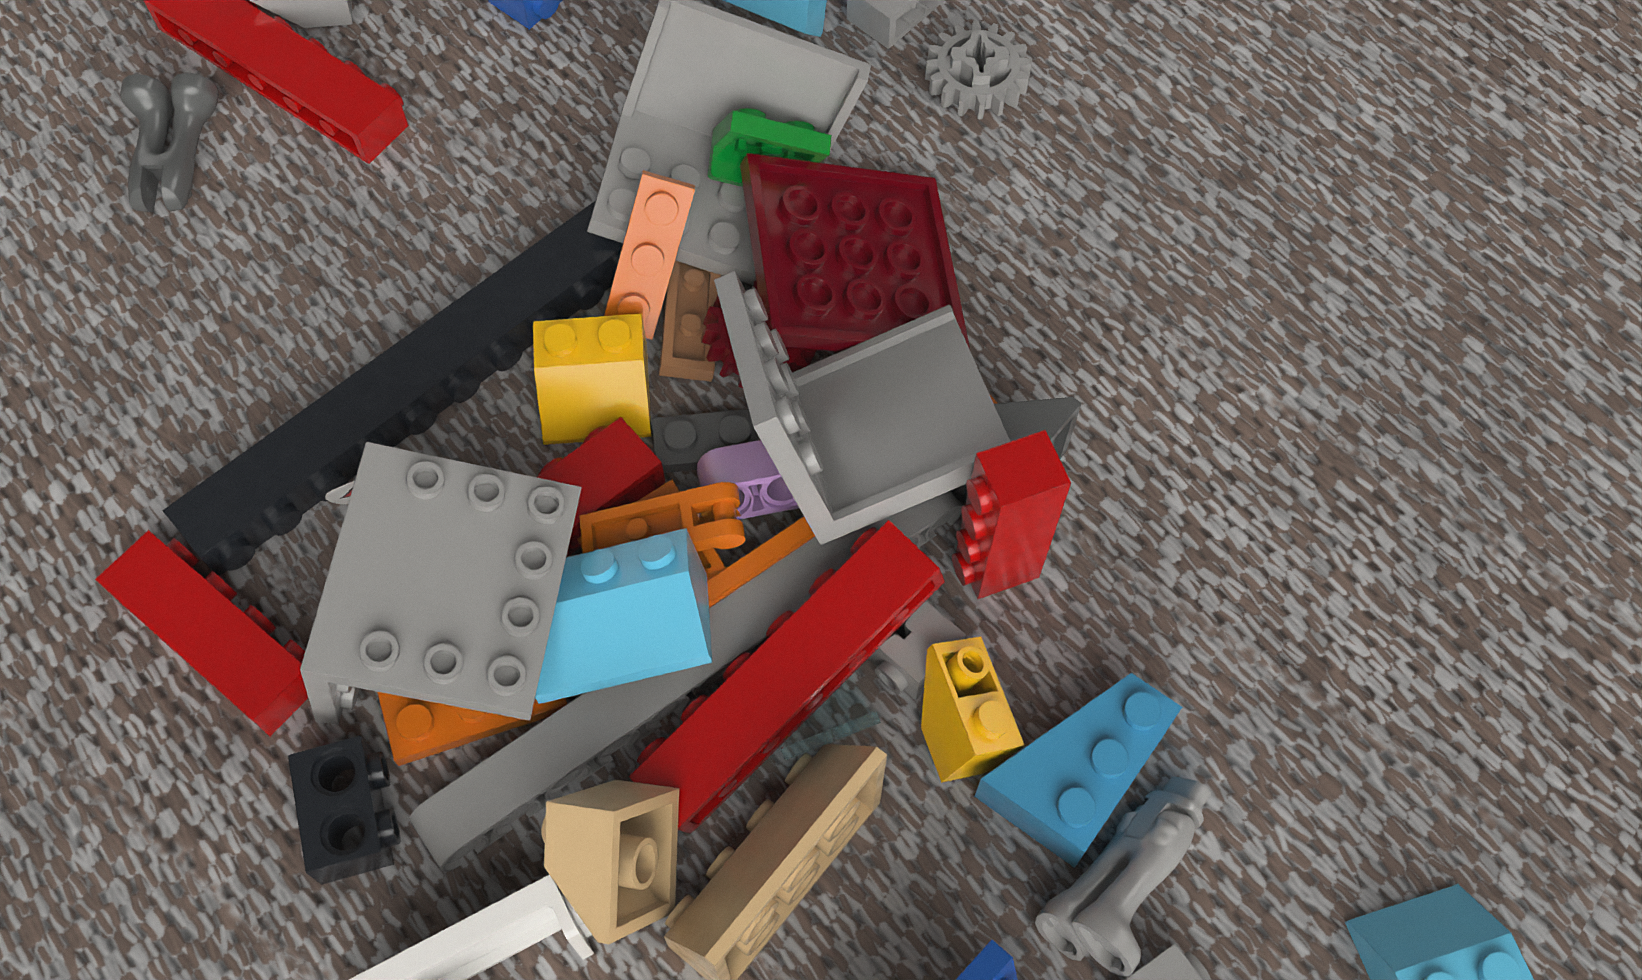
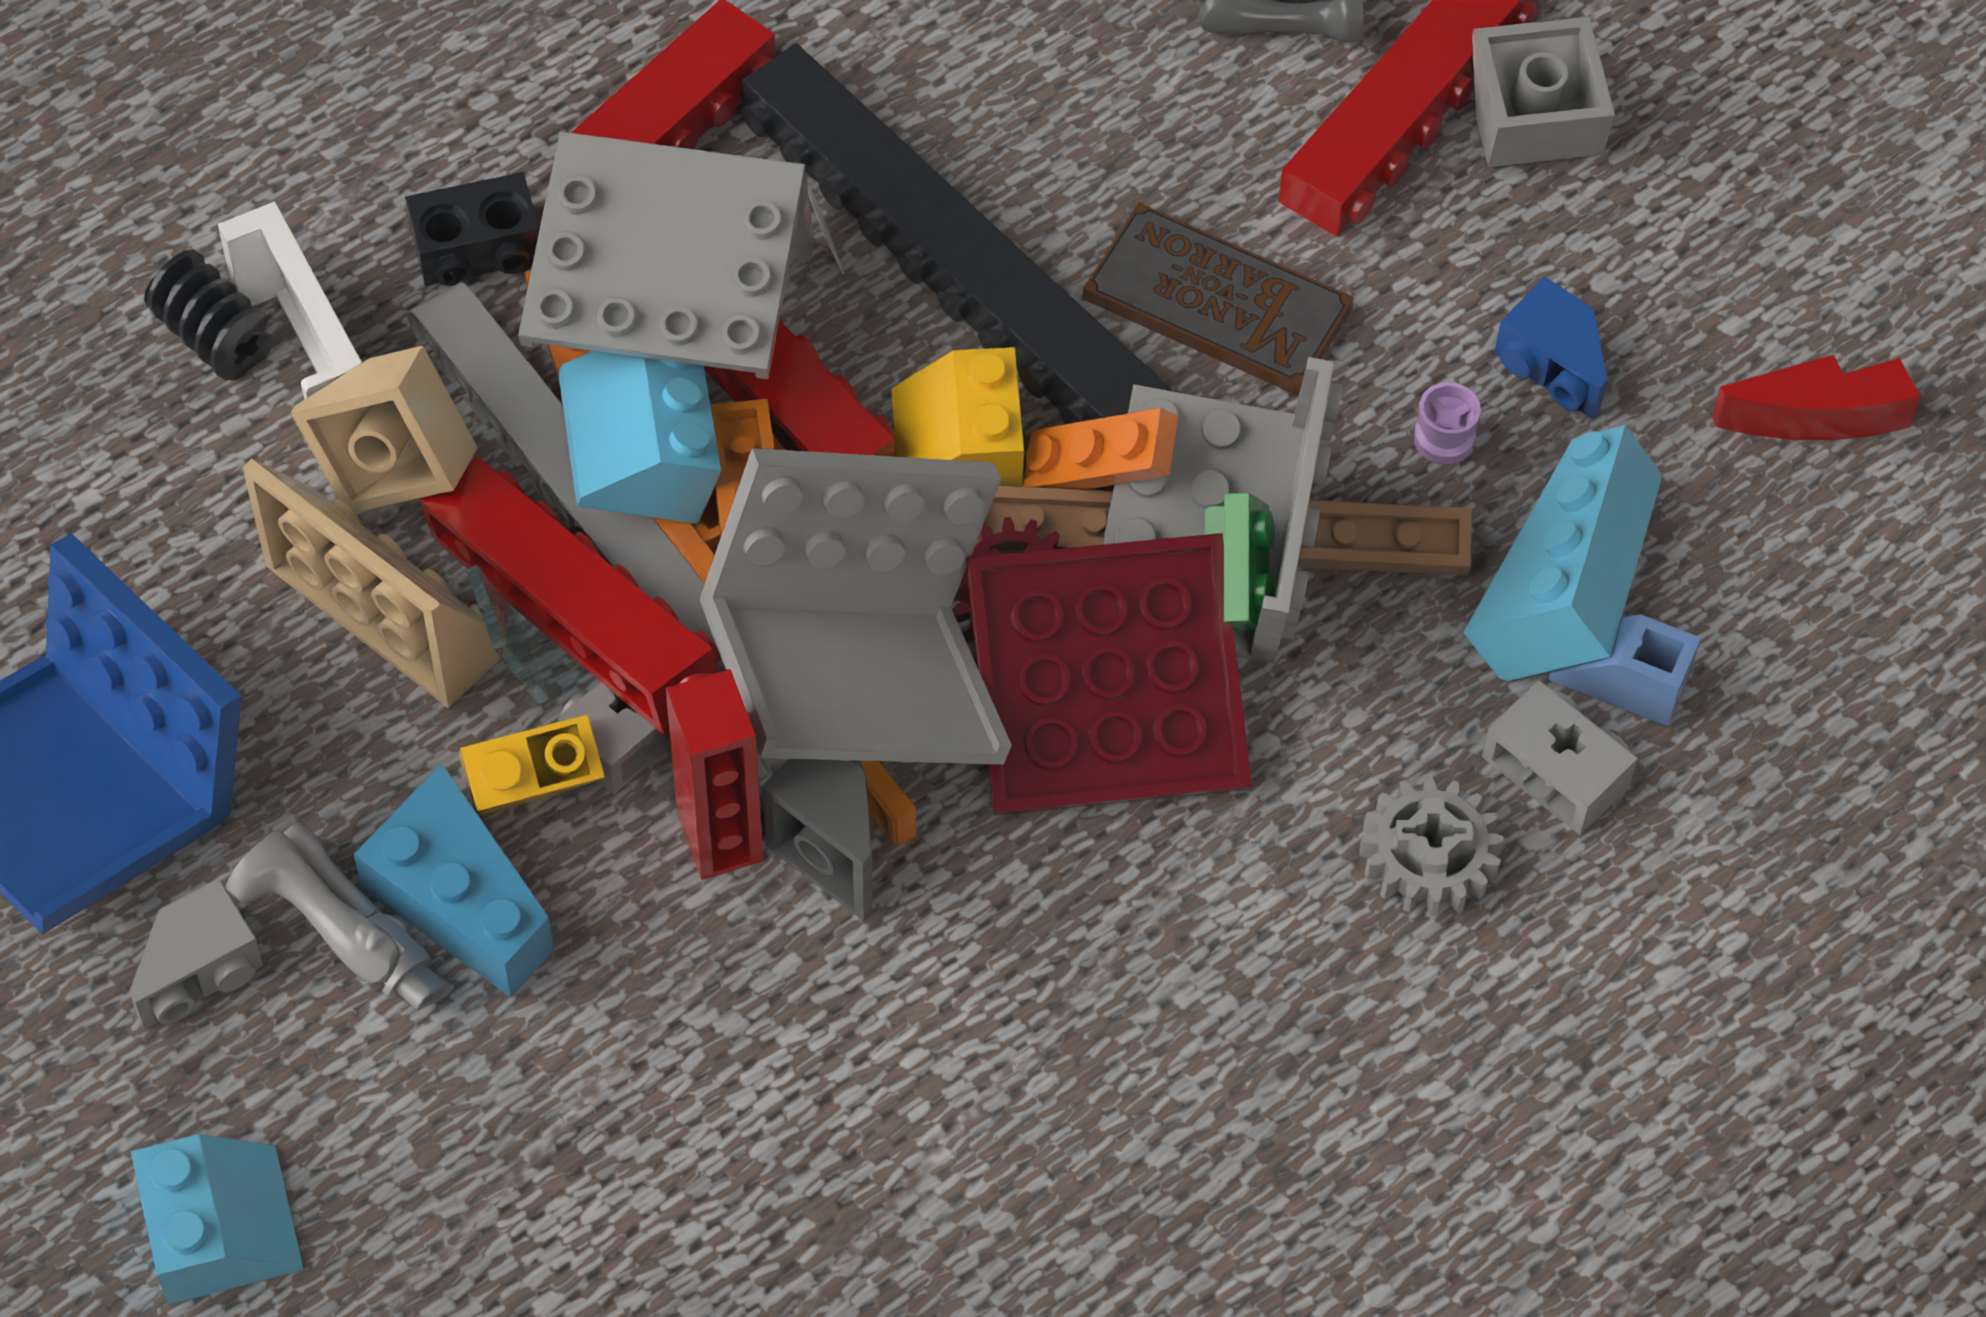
camera: 90 degrees right, 5 degrees down
(465, 204) = (1217, 298): none -> tile
(604, 47) = (1447, 423): none -> lavender wheel

